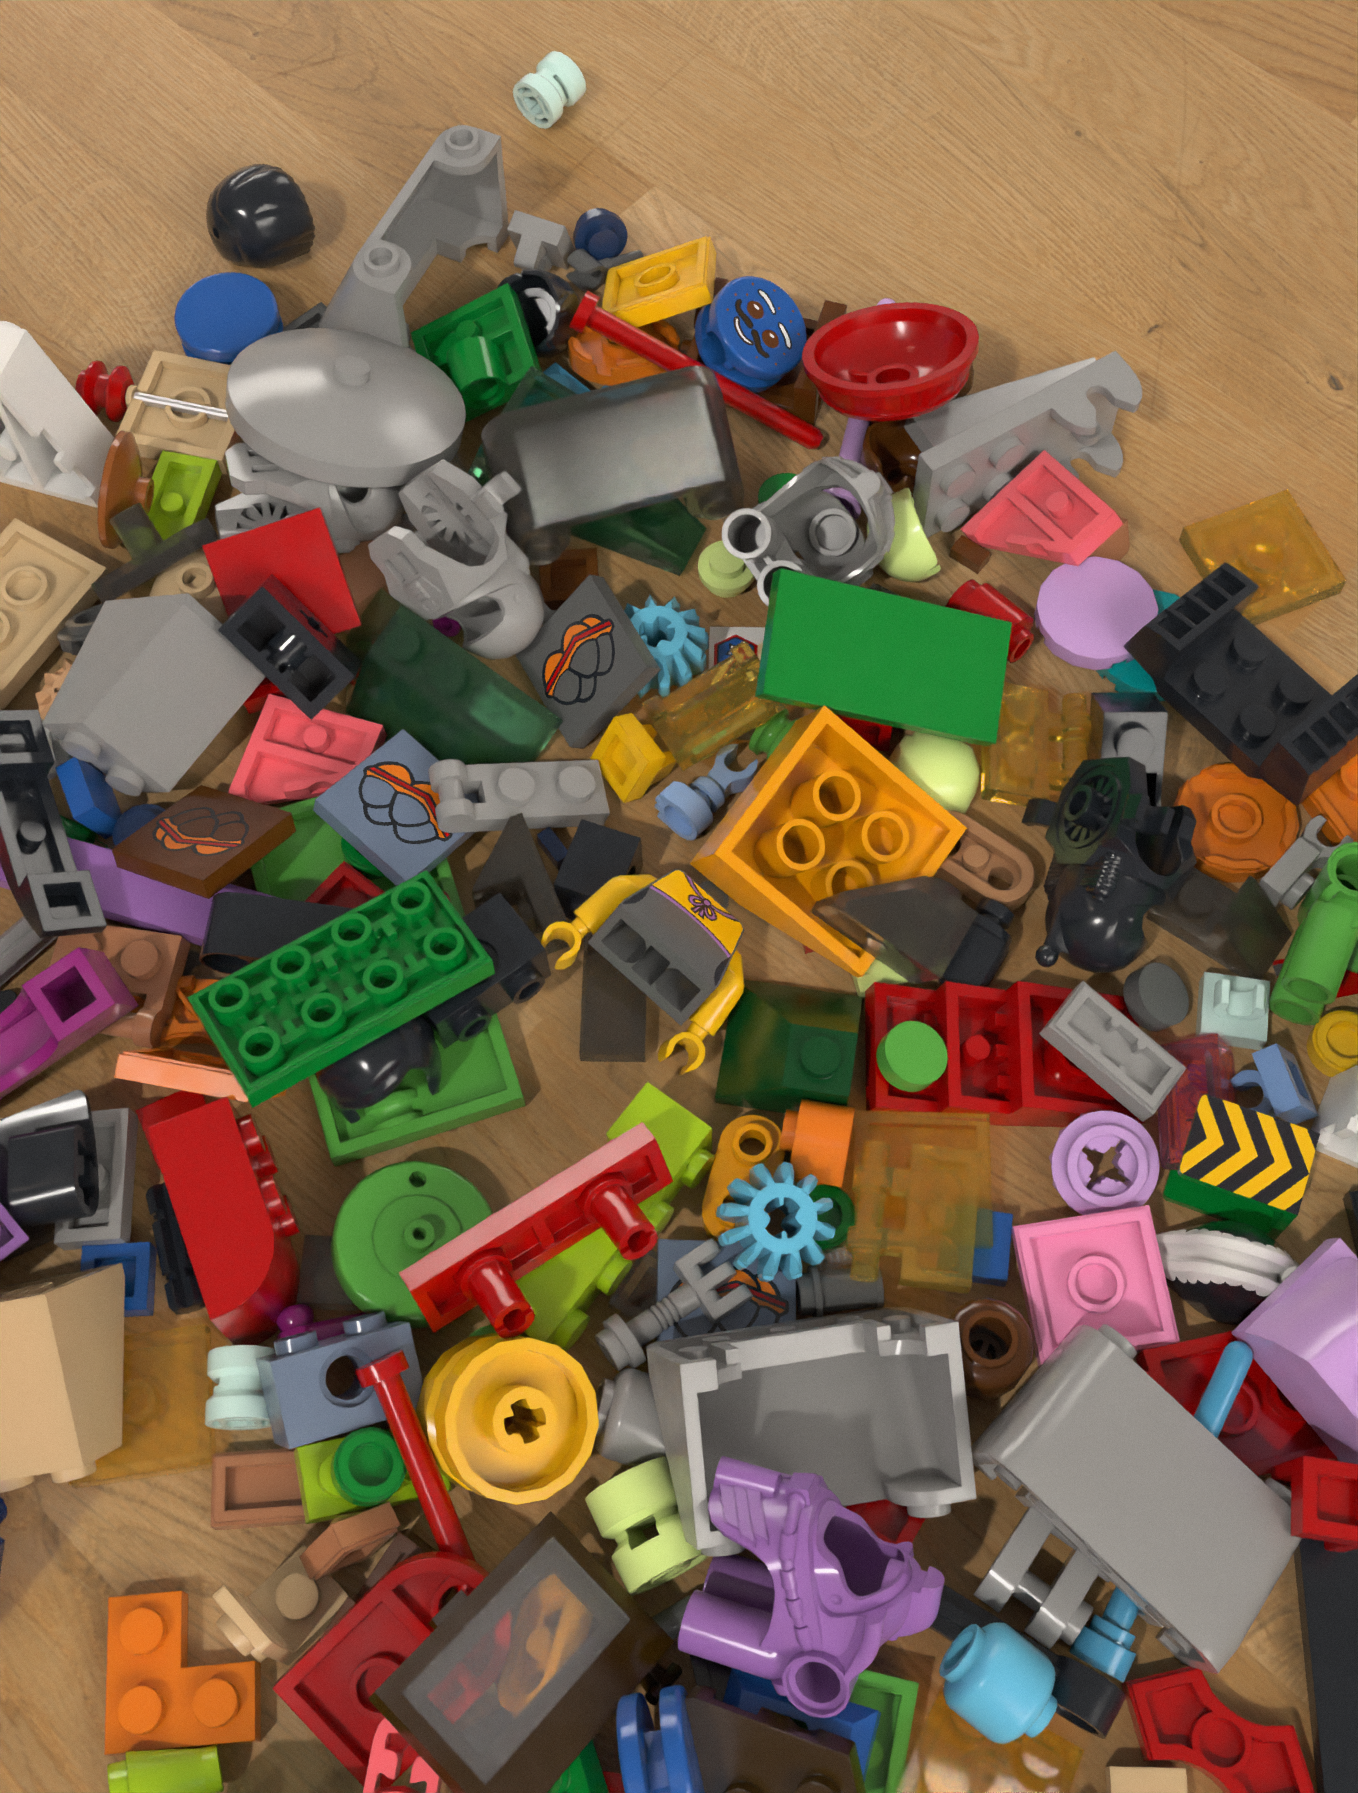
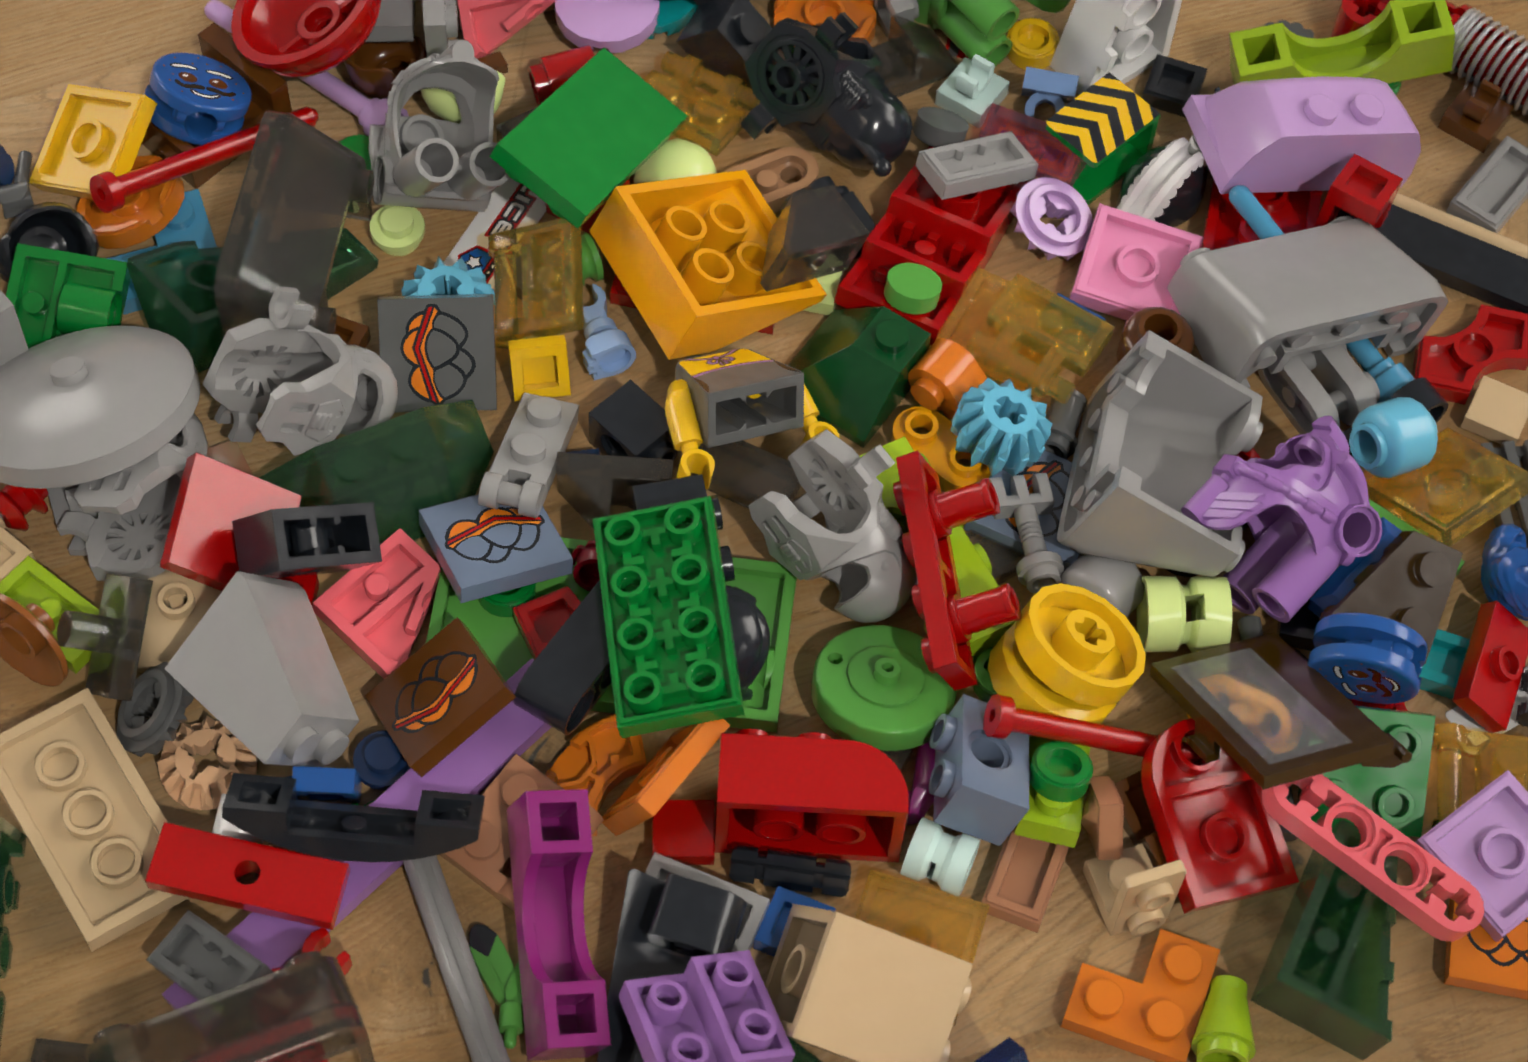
camera: 70 degrees left, 5 degrees down
(539, 1136) = (861, 538): none -> light grey helmet

